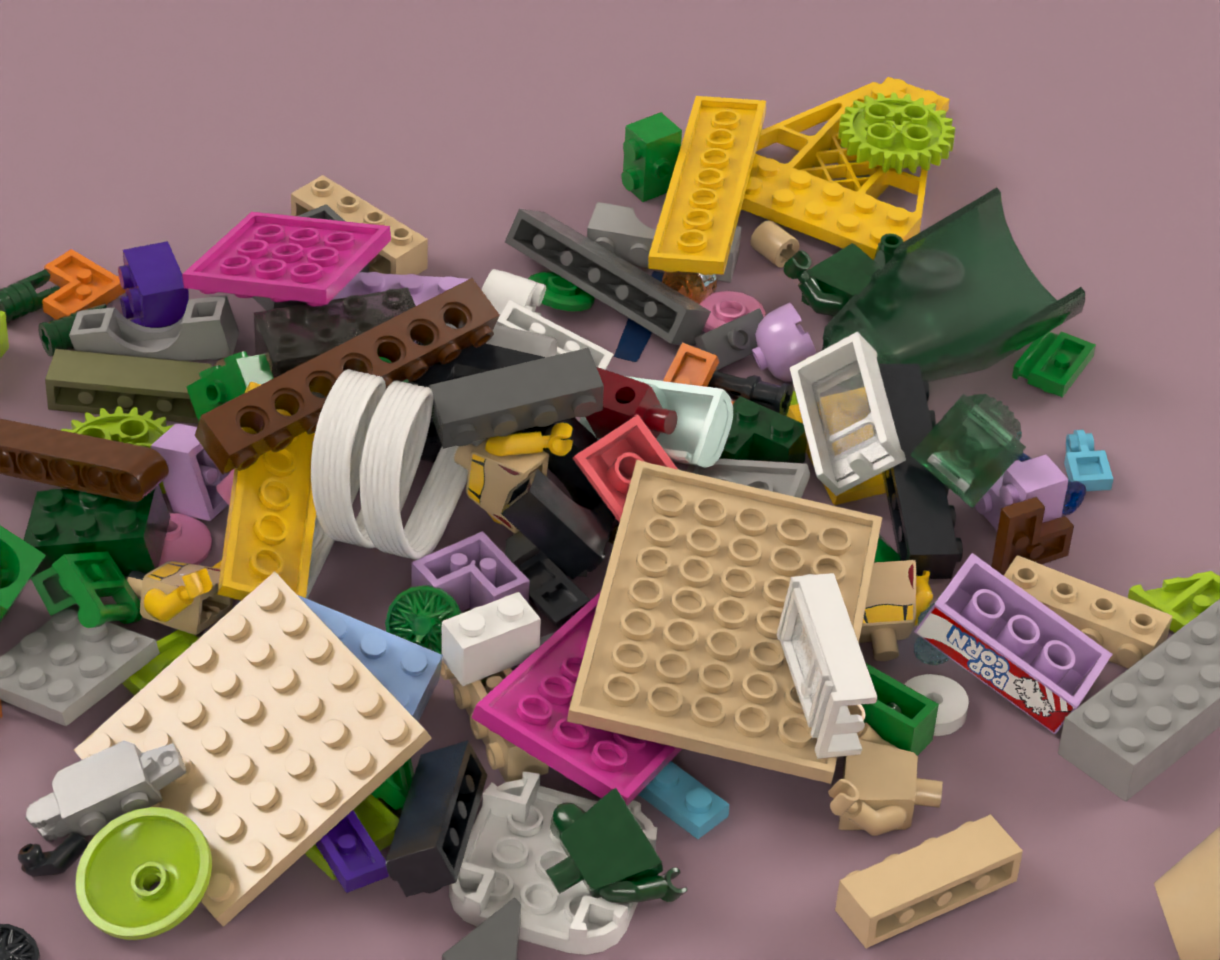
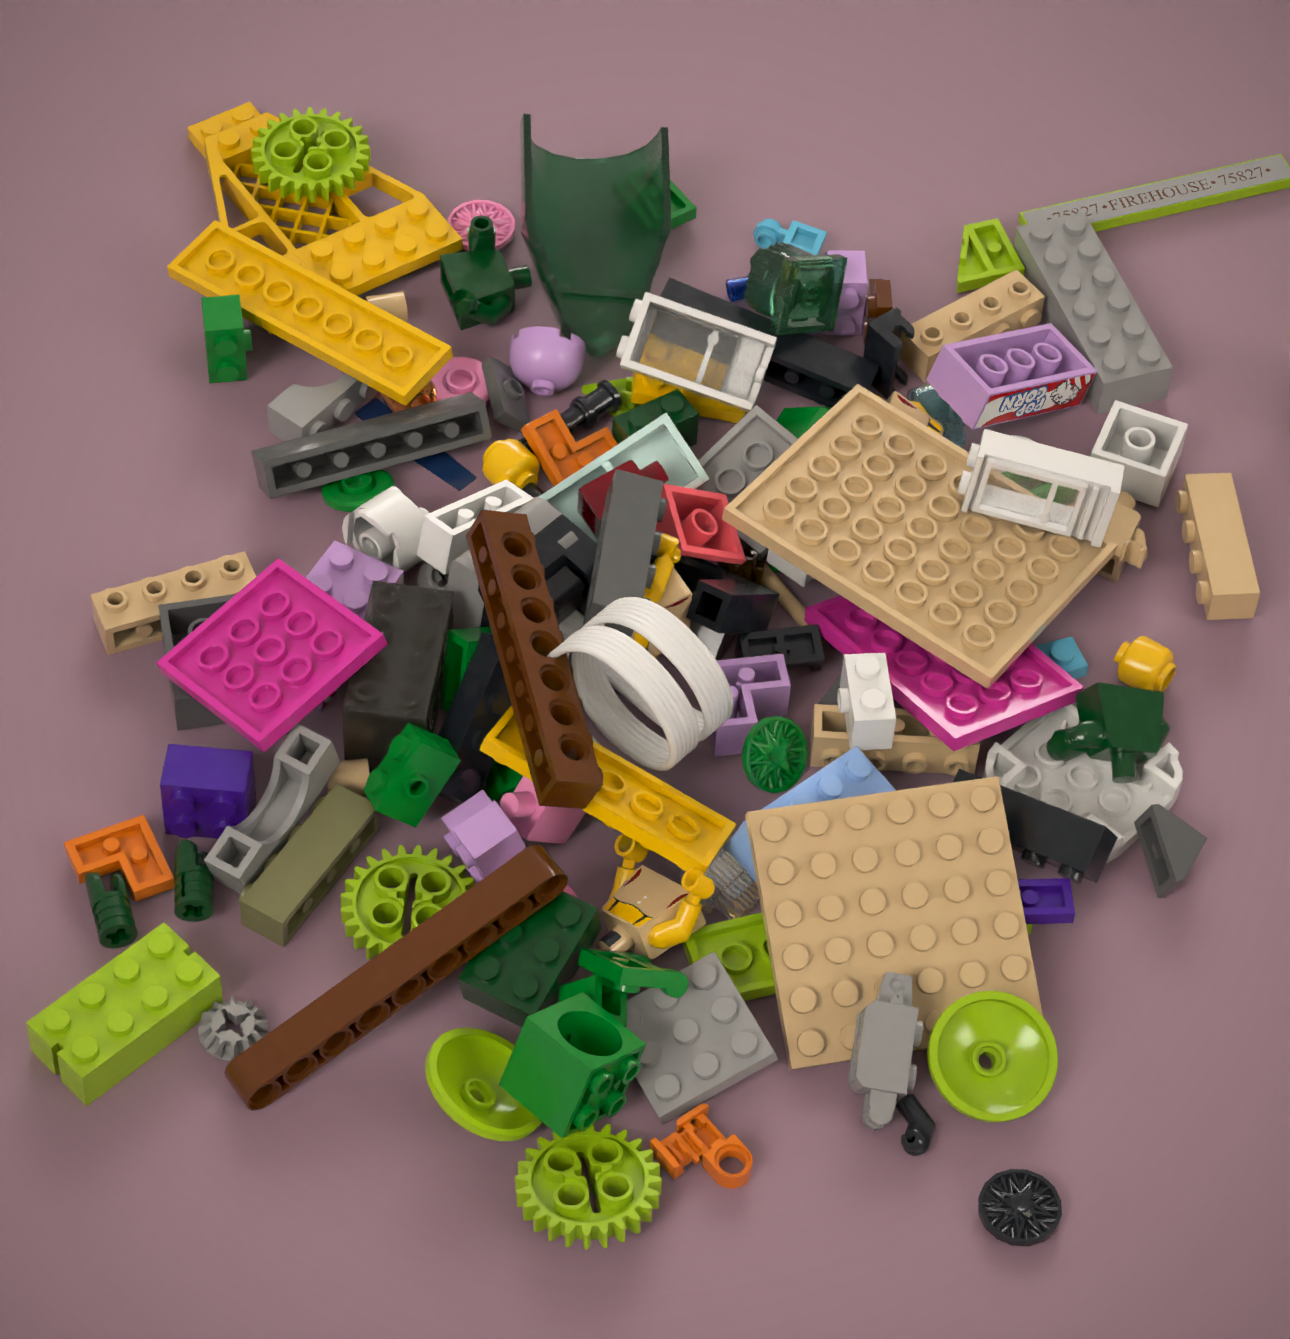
camera: 65 degrees left, 10 degrees up
(650, 361) = (510, 462): none -> yellow head
(729, 871) = (1145, 664): none -> yellow head
(985, 537) = (883, 347): none -> black hinge
(1003, 776) = (1145, 445): none -> white brick

